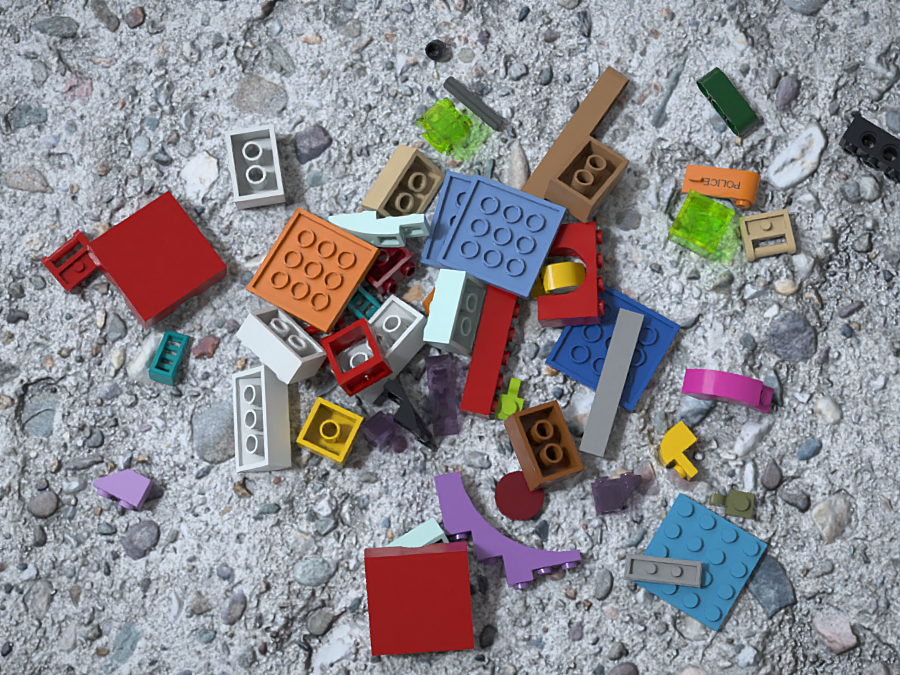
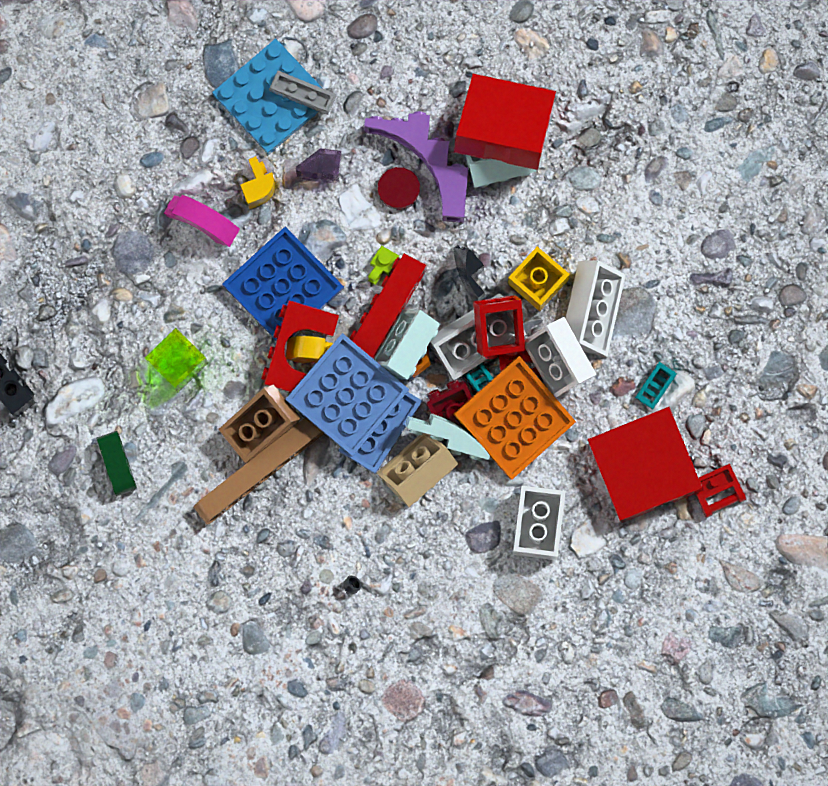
camera: 165 degrees left, 0 degrees up
(125, 486) = (719, 285): lavender slope -> none
(379, 430) = (497, 268): clear purple slope -> none
(441, 395) = (437, 285): clear purple slope -> none
(444, 126) = (366, 508): clear neon green brick -> none
(473, 103) = (334, 528): dark grey axle -> none
(543, 445) = (366, 215): dark orange brick -> none
(611, 383) = (294, 251): light grey tile -> none
(733, 184) = (146, 393): orange door -> none
(737, 503) = (225, 132): olive plate -> none
(764, 227) = (120, 346): tan plate -> none

